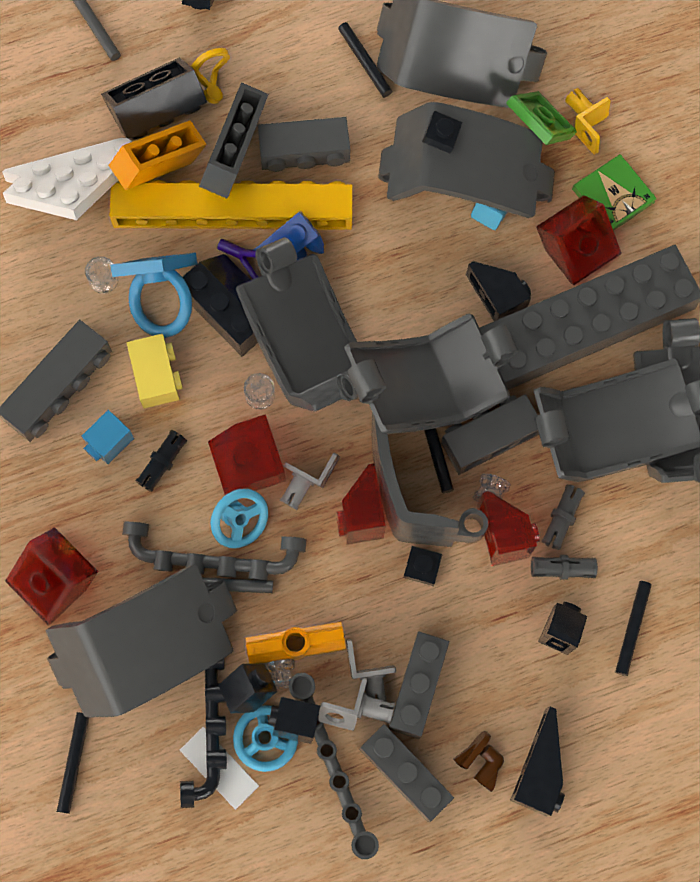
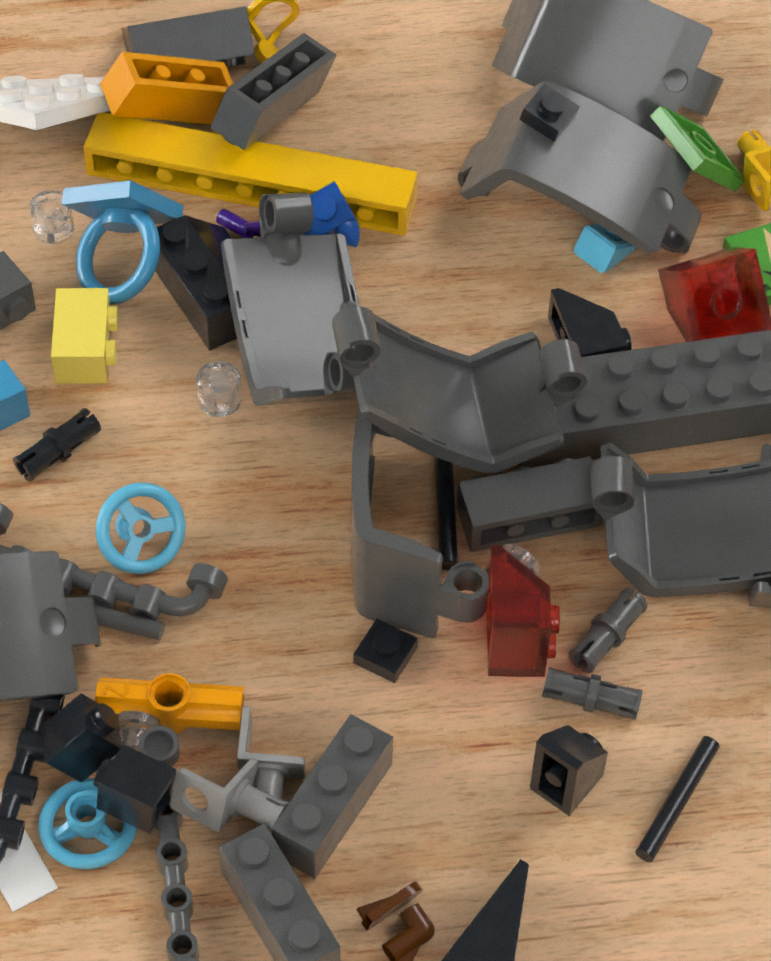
camera: 15 degrees right, 20 degrees down
(247, 456) = (181, 456): clear red slope -> none
(302, 481) = (248, 503): light grey bracket -> none
(304, 143) = (368, 123): dark grey brick -> none
(362, 510) = (314, 549): clear red slope -> none
(365, 60) = (478, 54): black bar -> none

